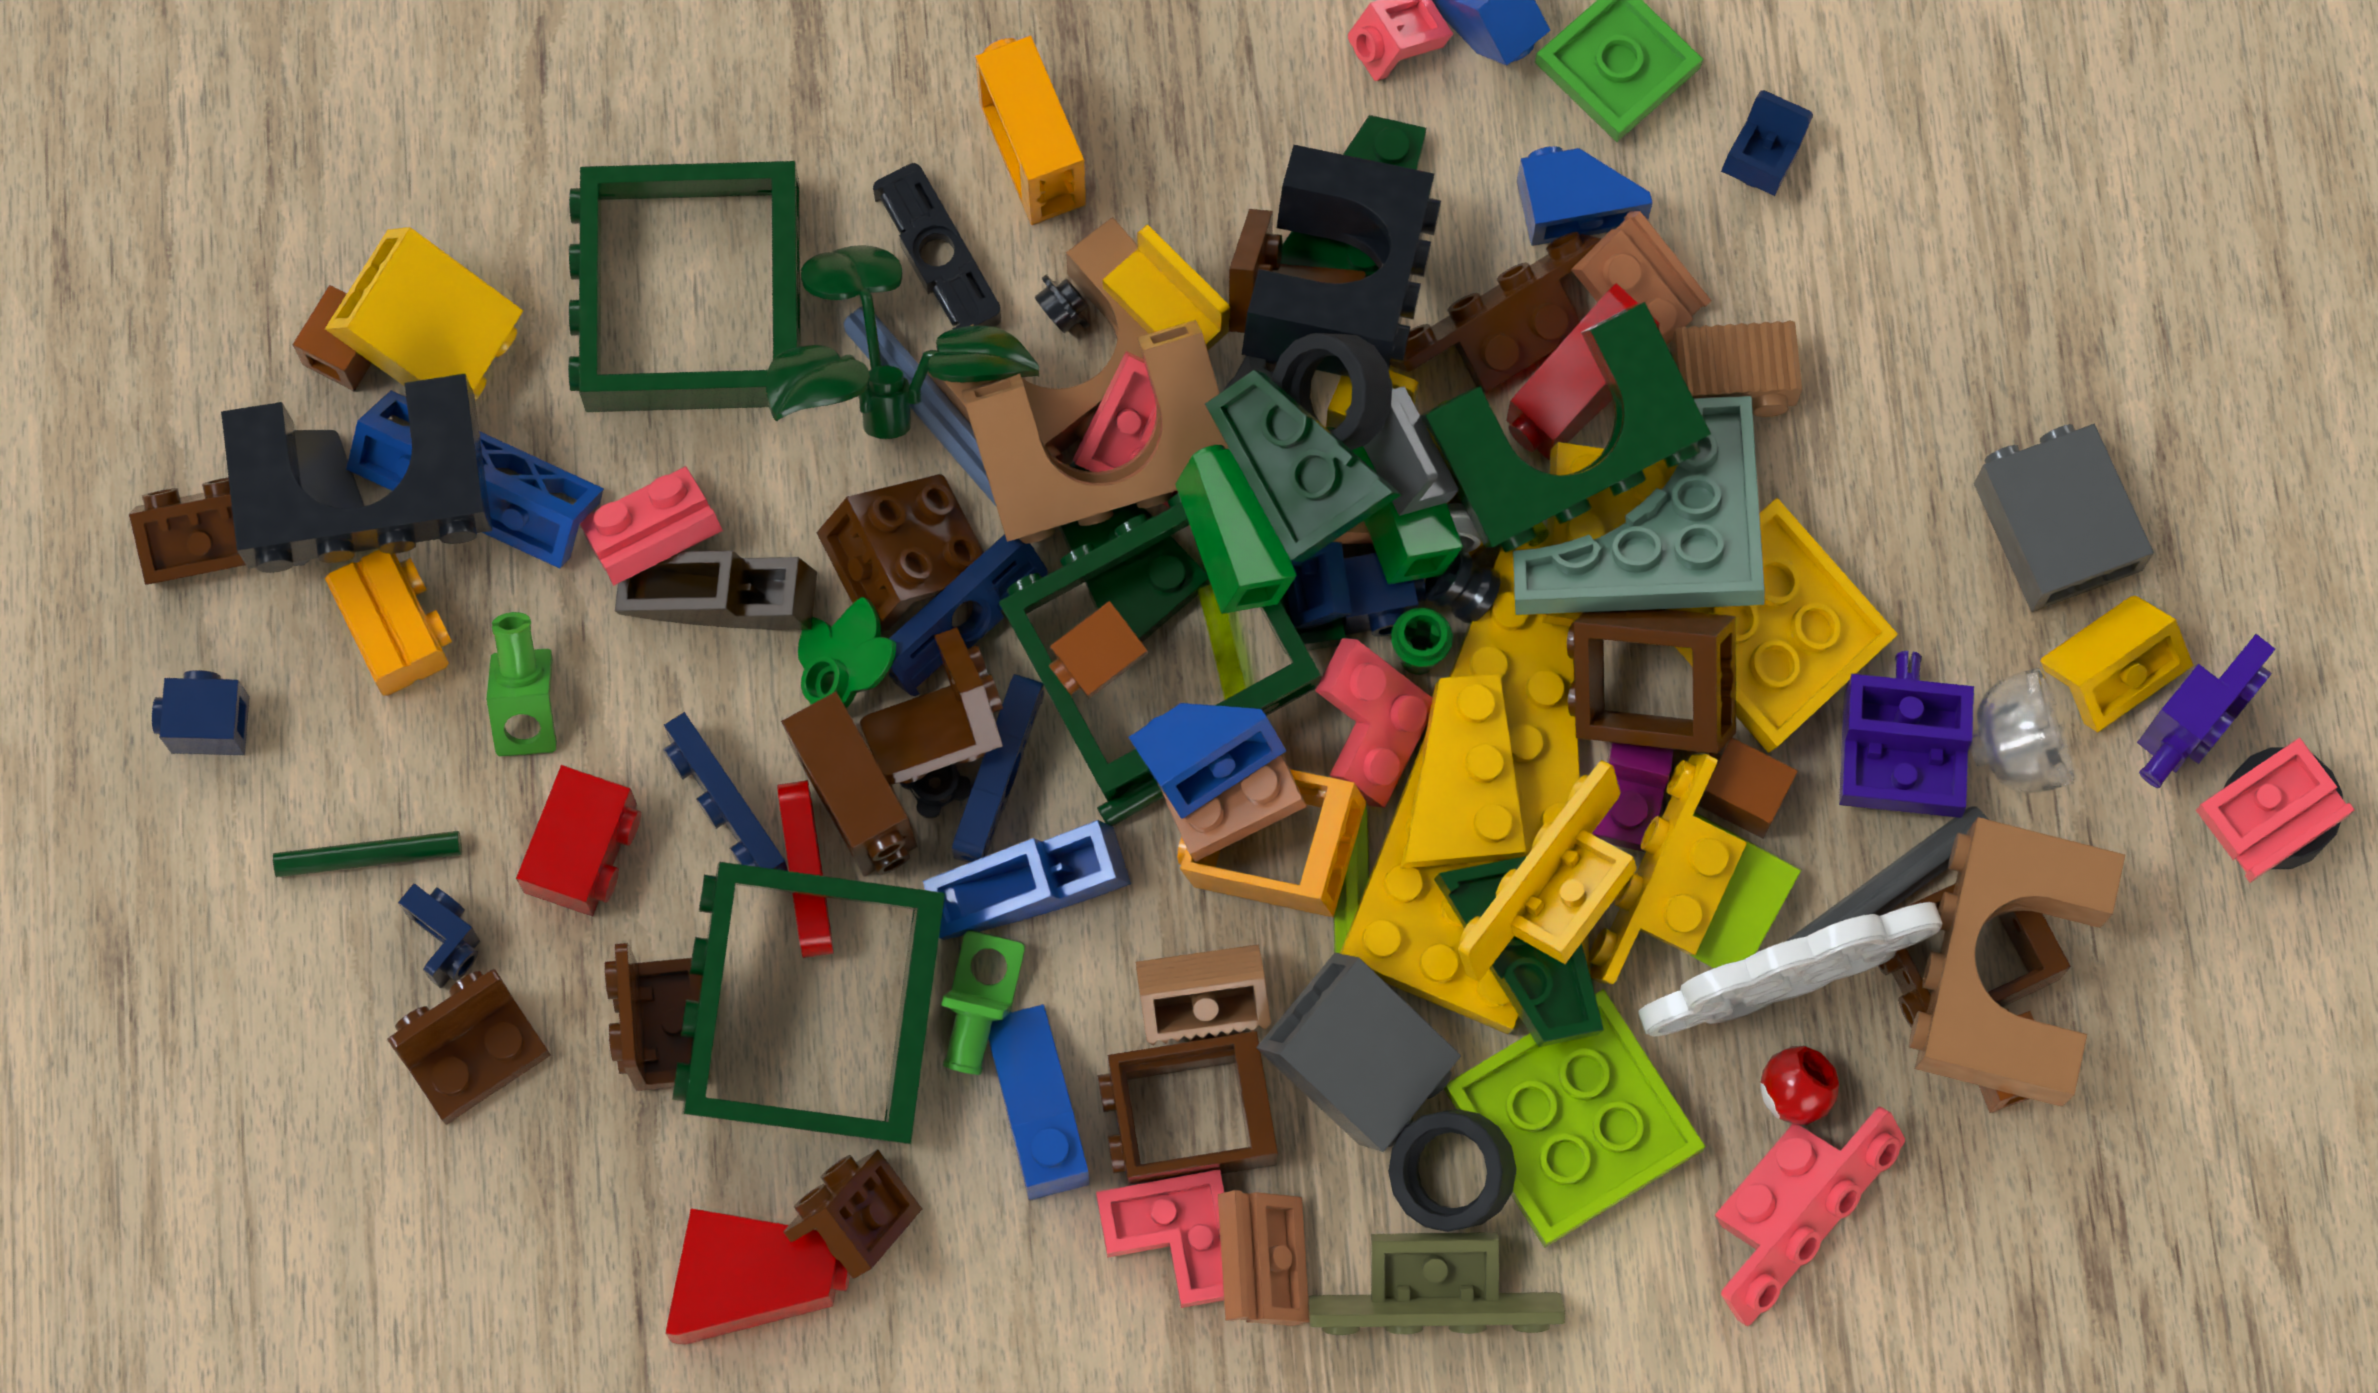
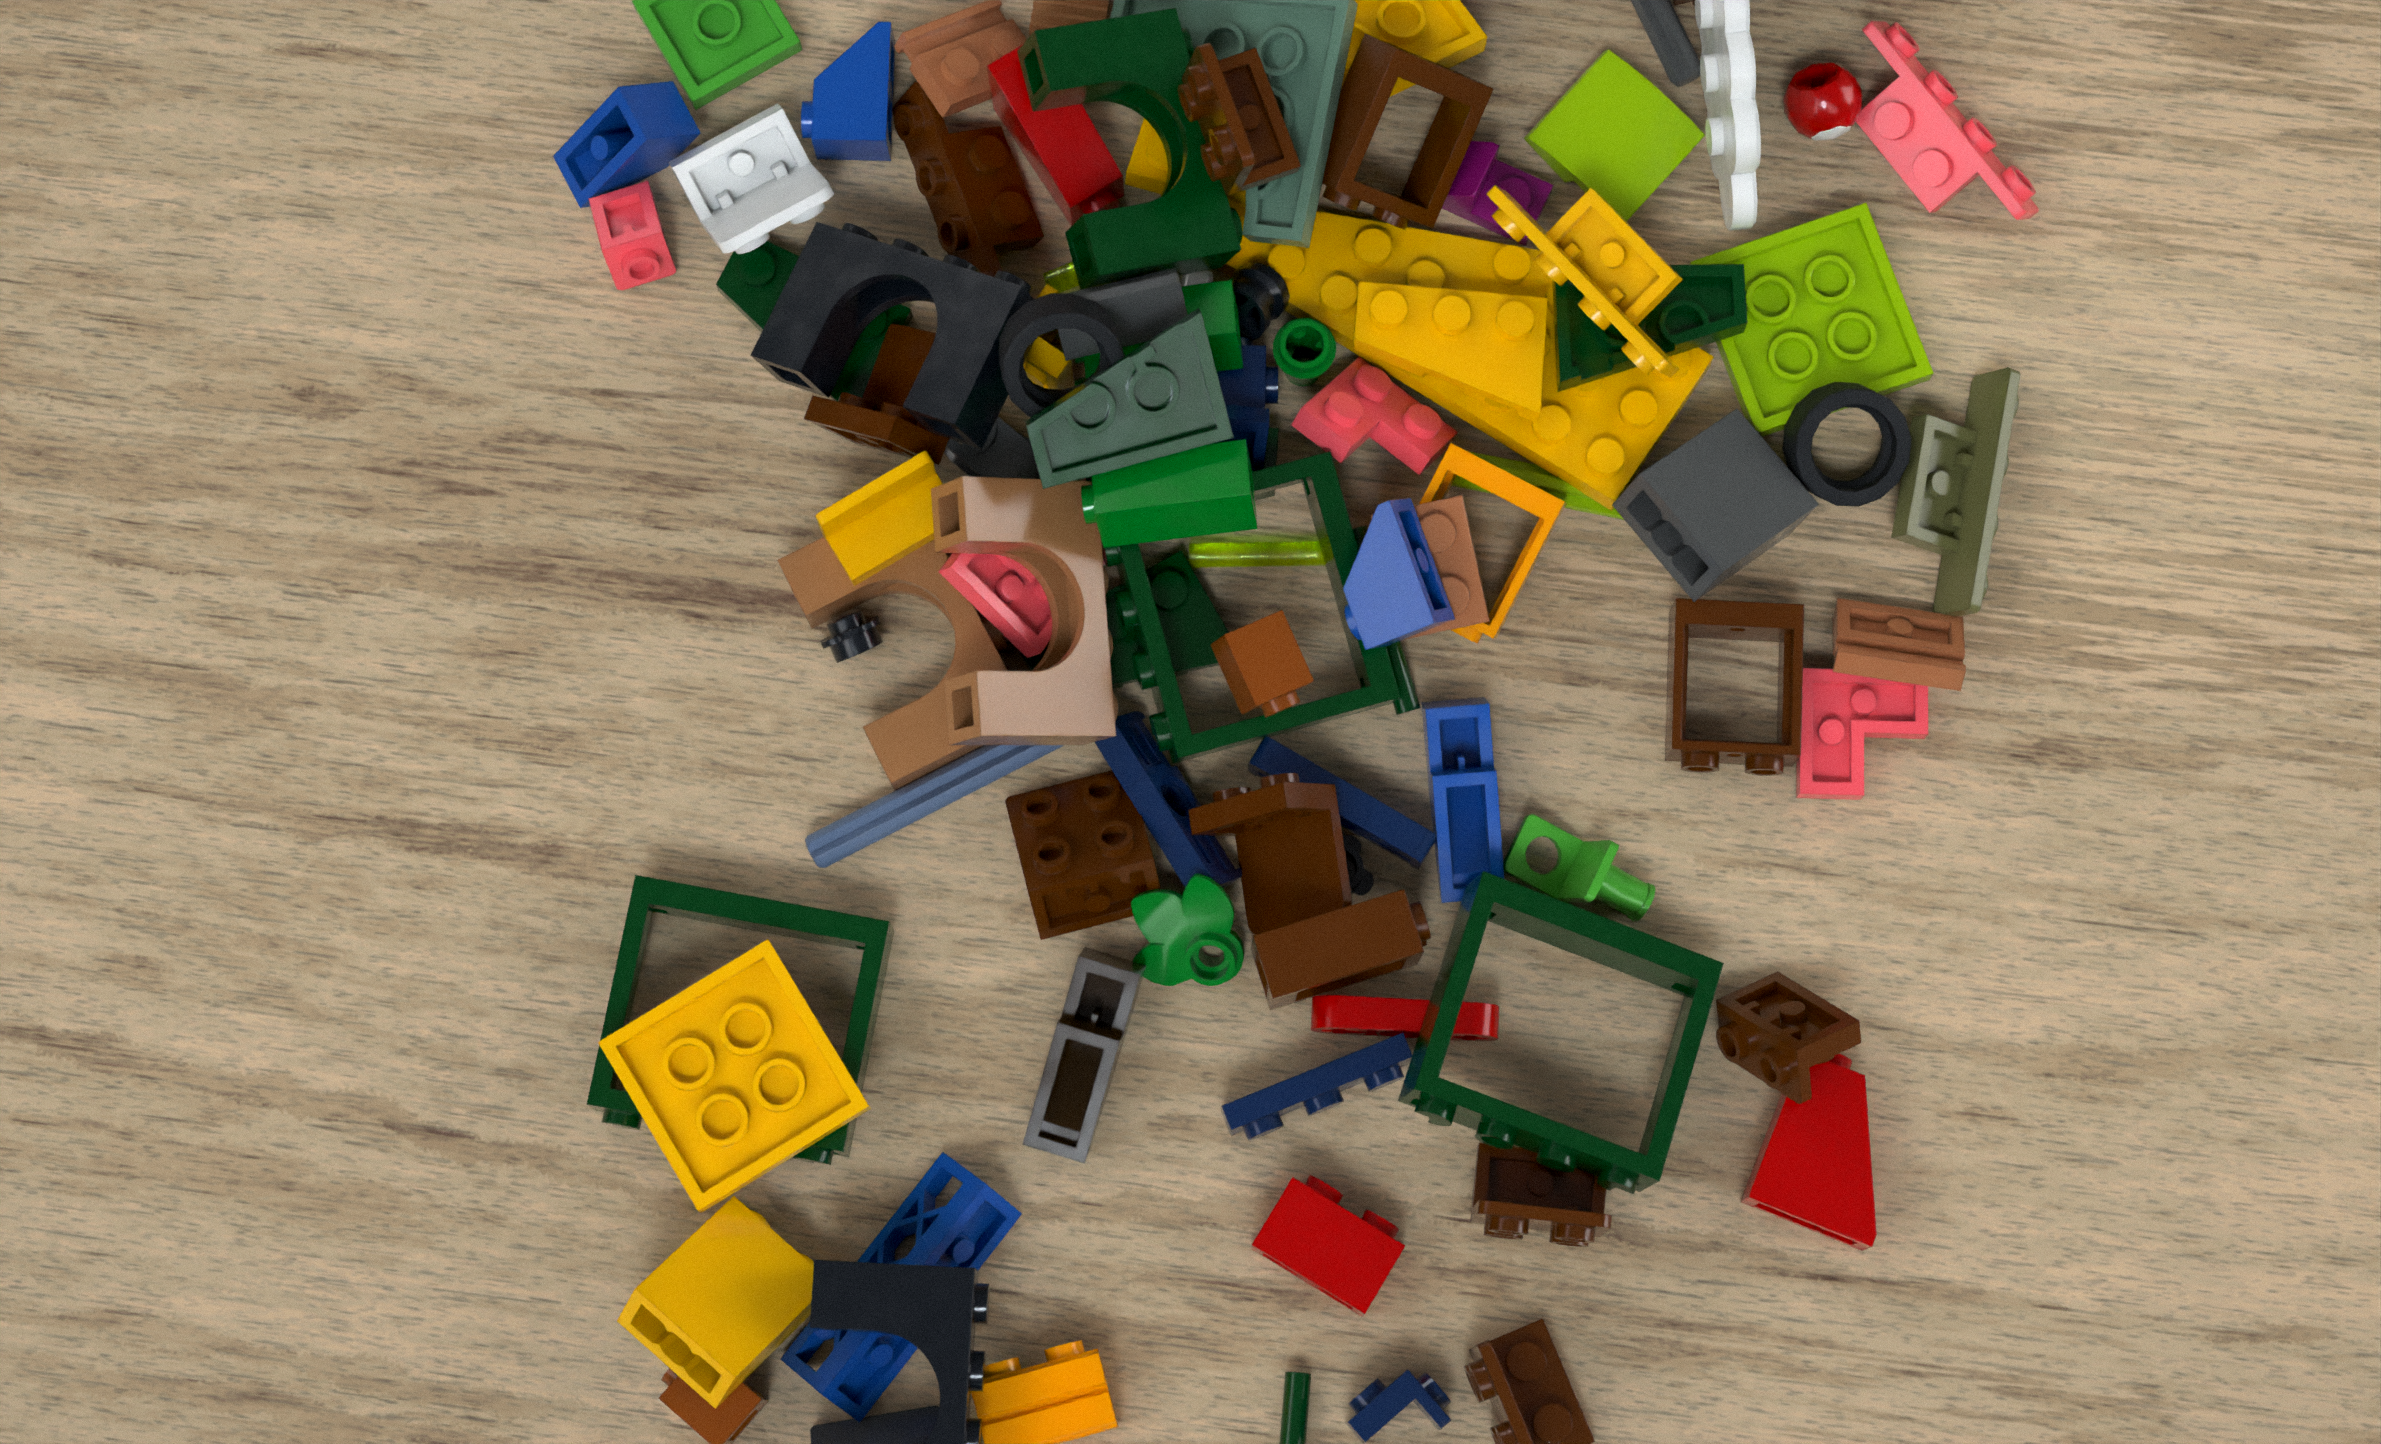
camera: 75 degrees left, 5 degrees up
(519, 685) = (1148, 1276): bright green bracket -> none
(625, 279) = (734, 1076): none -> yellow plate
(650, 525) = (1001, 1107): coral plate -> none
(820, 377) = (915, 885): dark green plant -> none
(922, 219) = (719, 764): black piece -> none
(1030, 129) = (657, 623): light orange window -> none
(1037, 1103) = (1699, 832): blue slope -> none
(1203, 994) = (1623, 644): medium nougat brick -> none
(1470, 119) = (751, 181): none -> white bracket
(1610, 506) = (1238, 119): none -> reddish brown bracket
(1677, 879) = (1589, 150): yellow bracket -> none
(1747, 787) = (1521, 77): dark orange brick -> none

